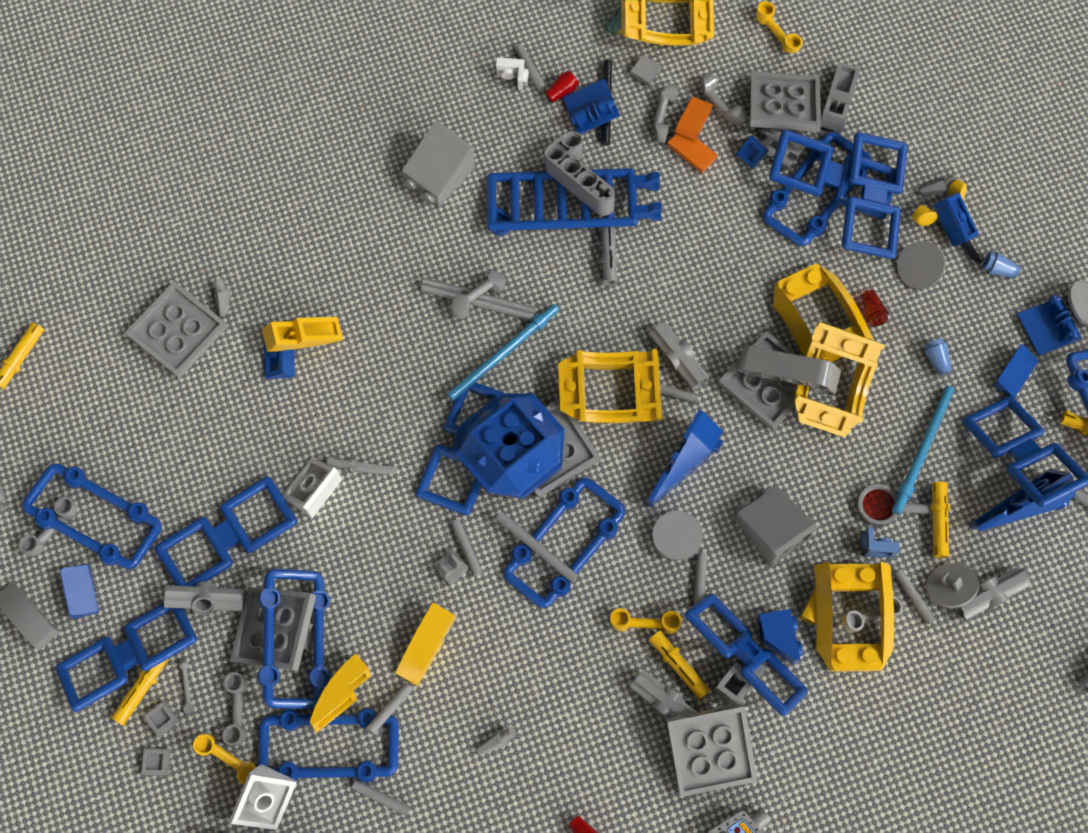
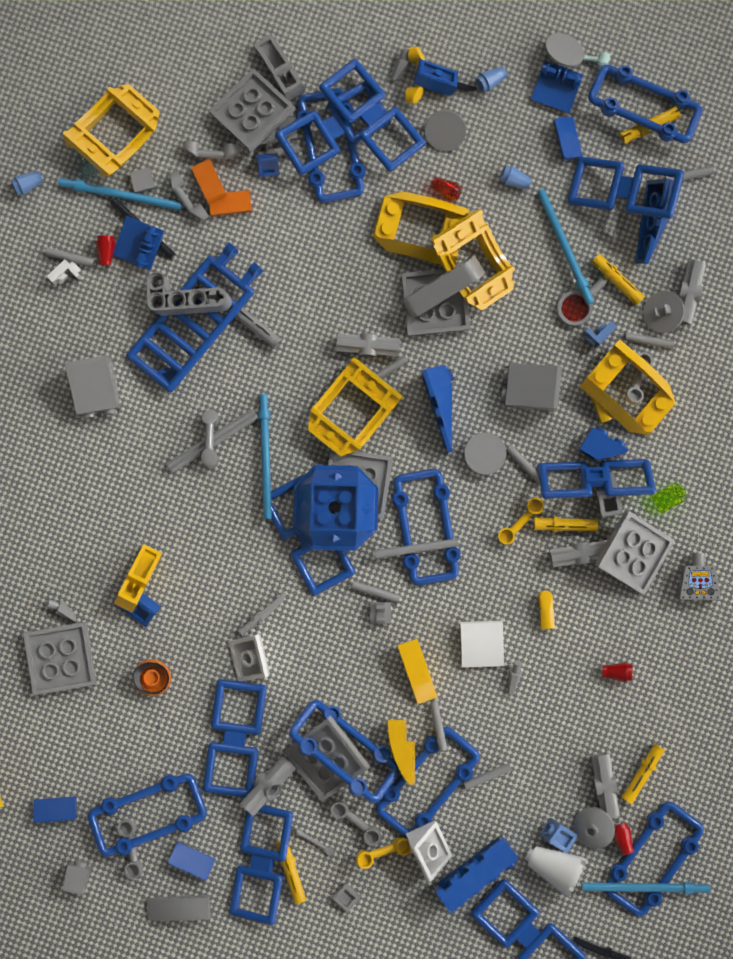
camera: 50 degrees left, 15 degrees up
(35, 434) = (55, 809): none -> blue slope
(161, 718) = (321, 872): light grey tile -> none
(222, 418) = (152, 677): none -> orange piece
(501, 683) = (482, 644): none -> white slope
(584, 716) = (546, 611): none -> yellow bar
(596, 30) = (81, 186): none -> dark azure bar
(790, 43) = (172, 60): yellow bar -> none
(792, 739) = (669, 497): none -> clear neon green bracket

